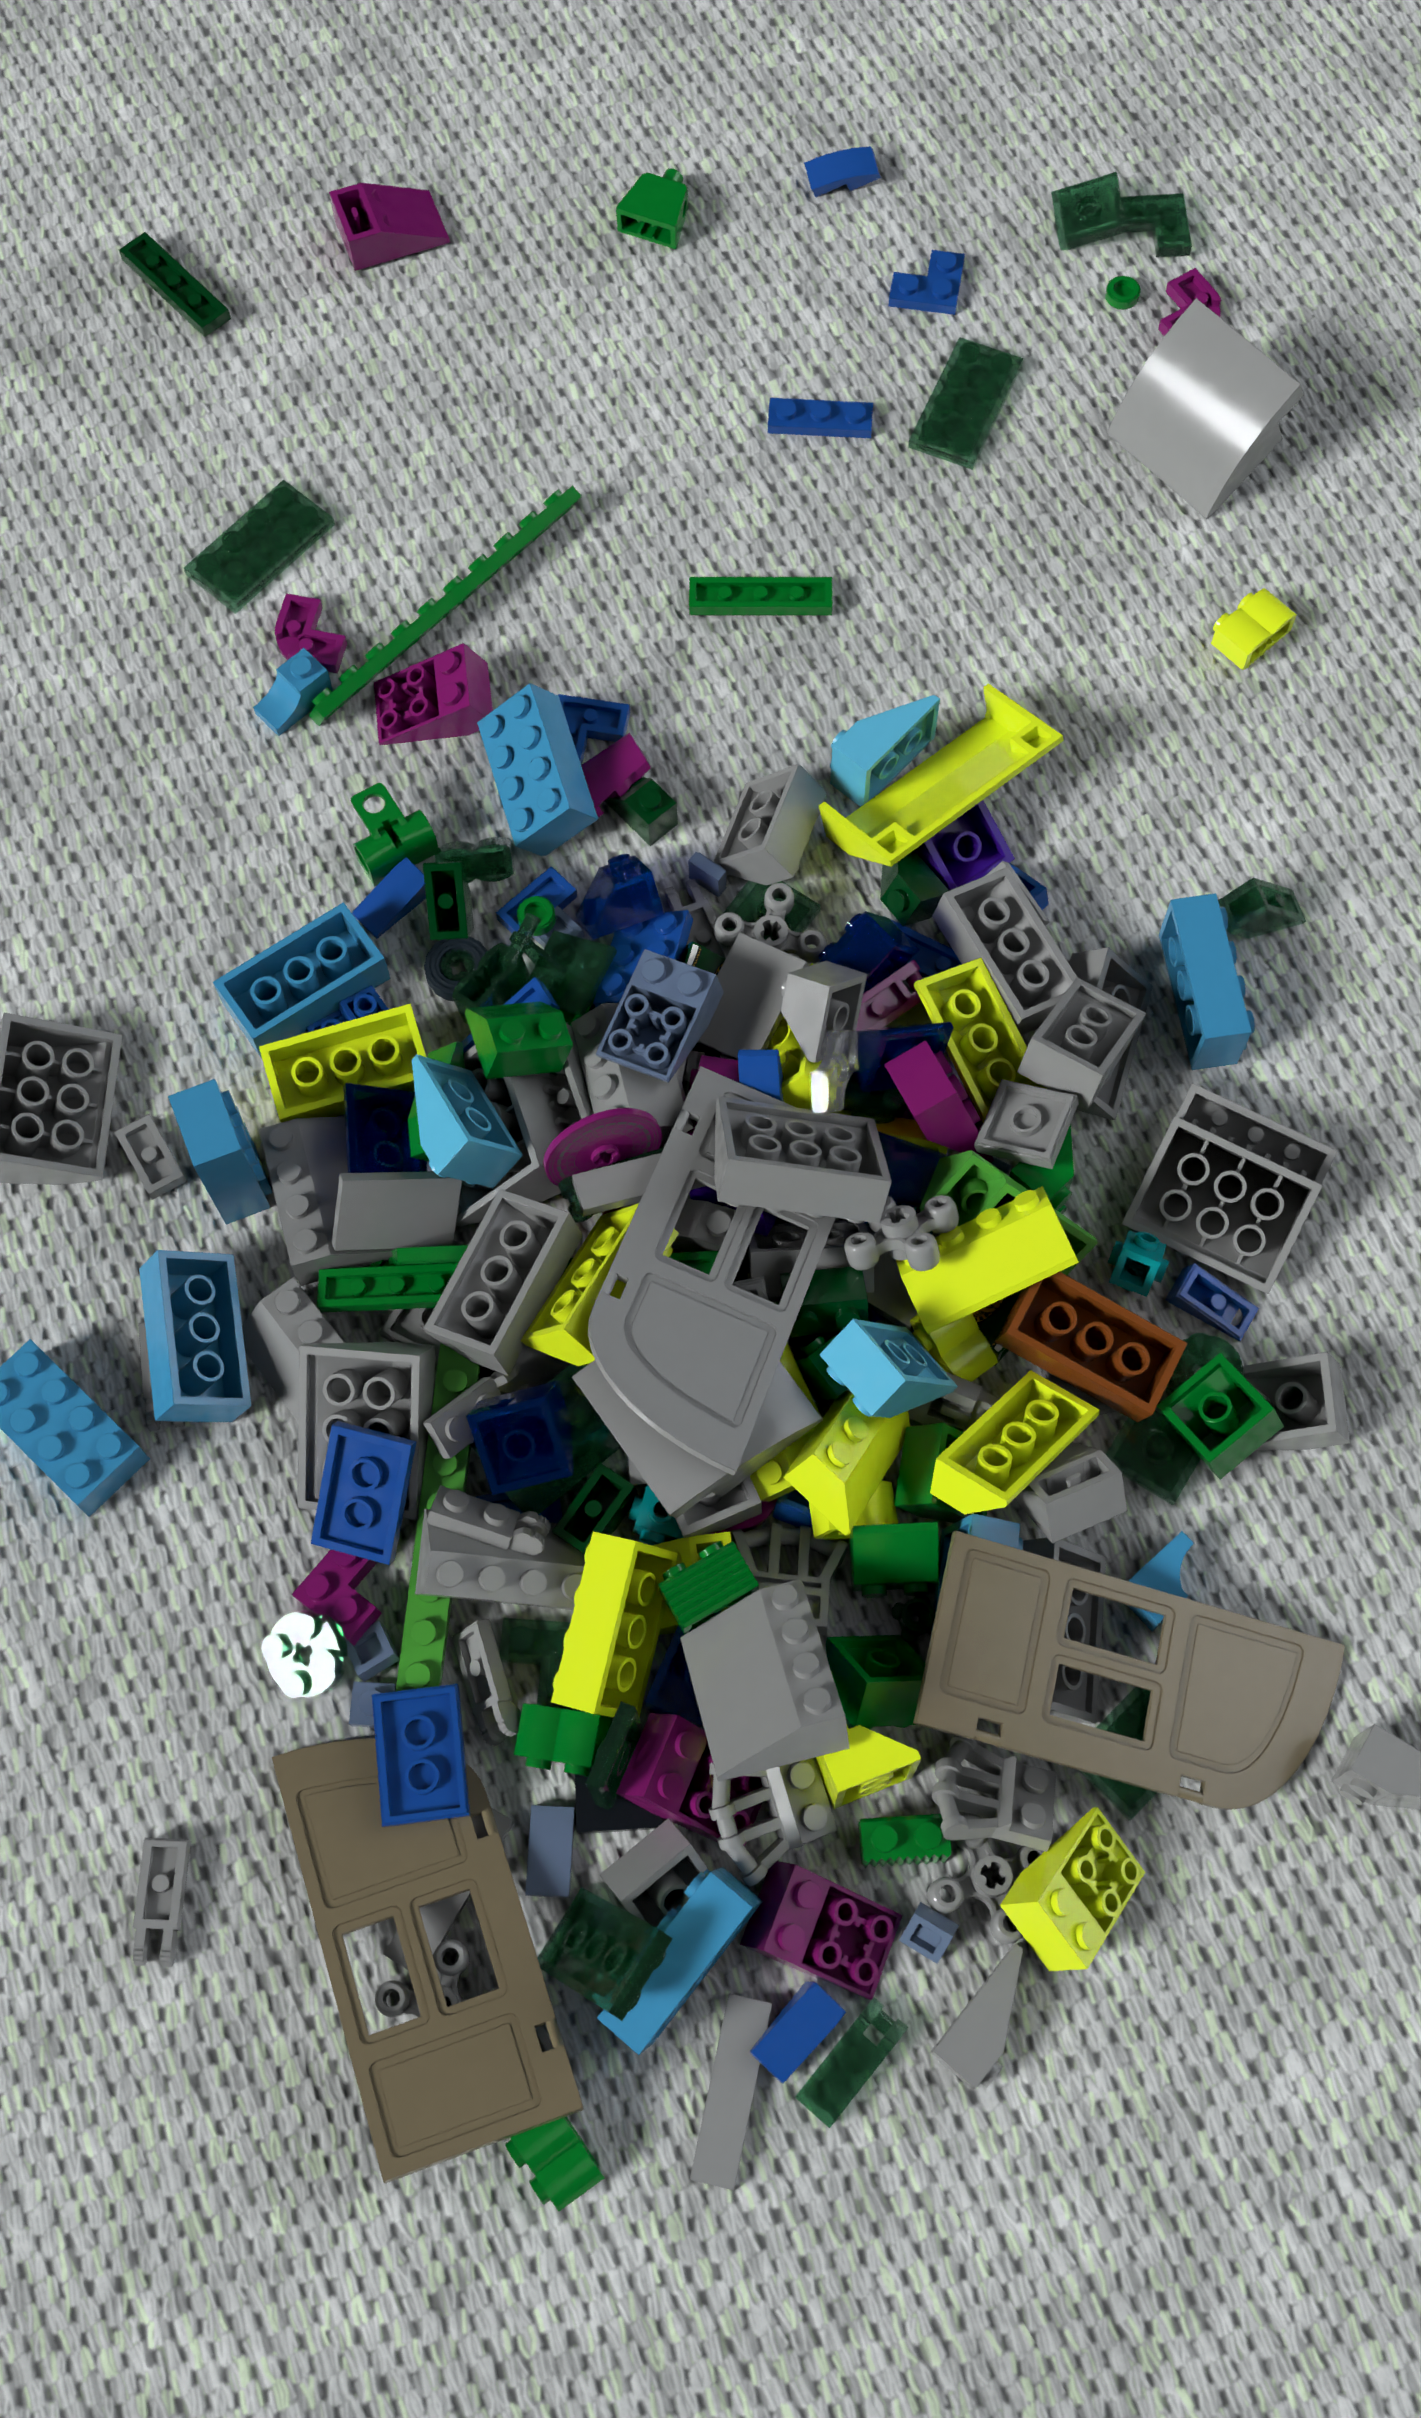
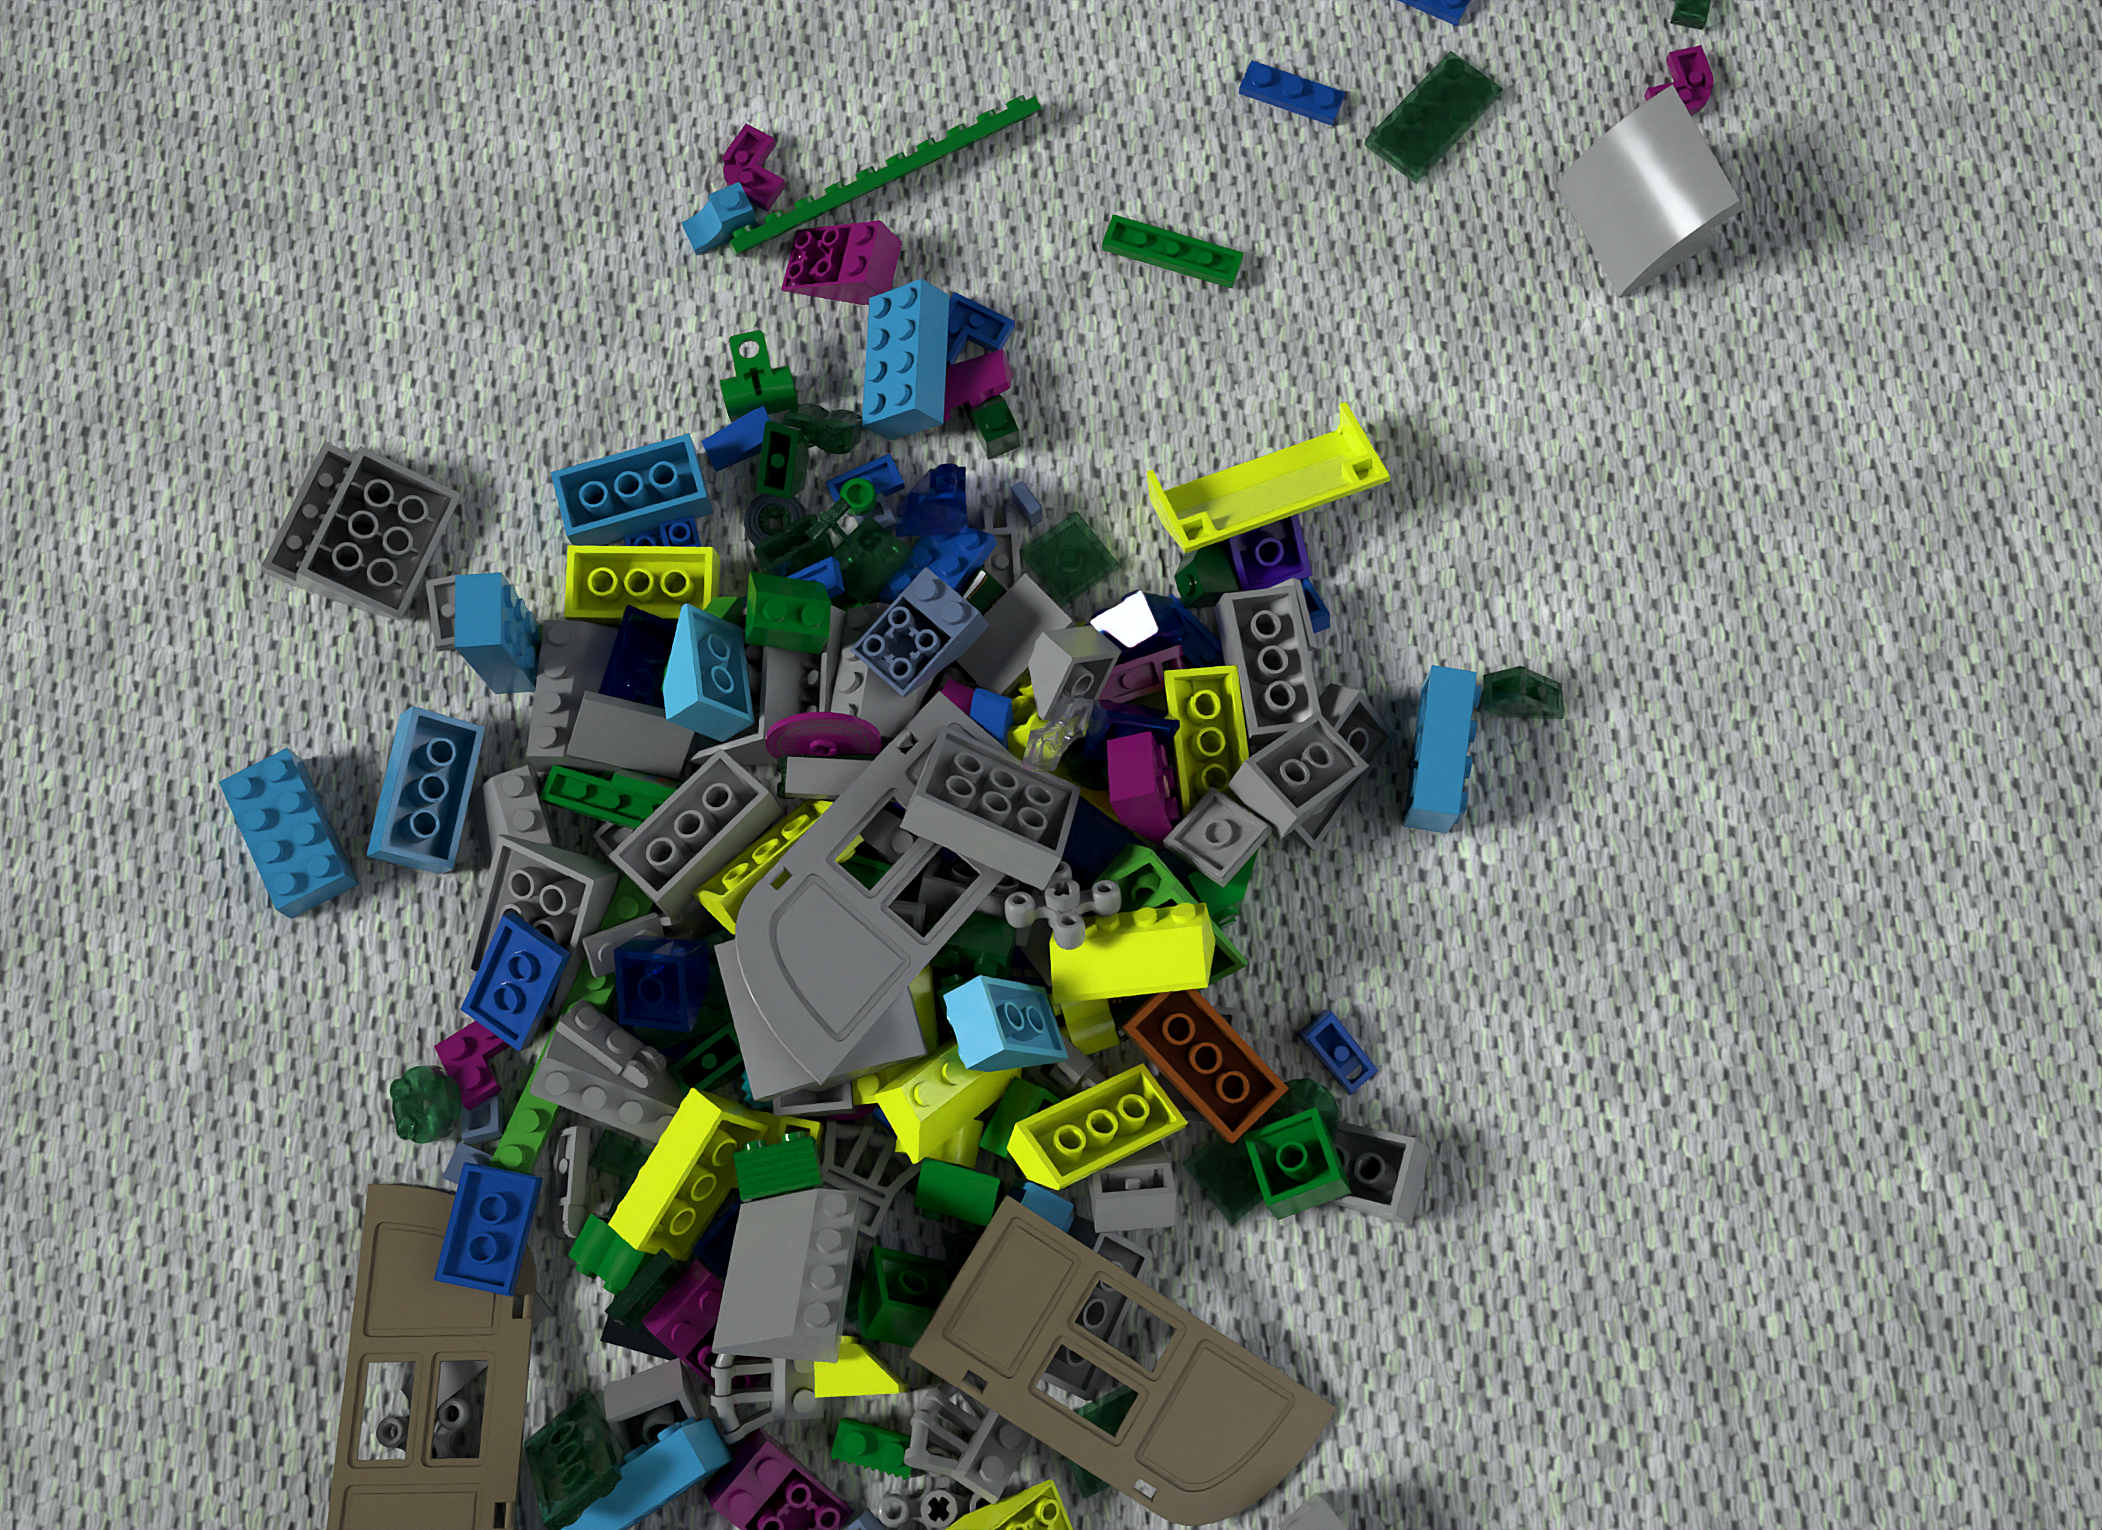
camera: 20 degrees right, 5 degrees up
(160, 1897) = (234, 1274): light grey hinge -> none
(259, 546) = (740, 70): clear green plate -> none
(550, 1851) = (572, 1349): sand blue tile -> none
(771, 826) = (1099, 477): light grey slope -> none
(773, 925) = (1065, 569): light grey gear -> none
(881, 747) = (1226, 432): medium azure slope -> none
(1122, 292) = (1624, 49): green tile -> none
(1138, 1262) = (1279, 994): teal brick -> none
(1163, 1575) = (1191, 1288): dark azure arch -> none
(1230, 1188) = (1391, 950): light grey slope -> none
(1252, 628) = (1619, 419): neon yellow brick -> none

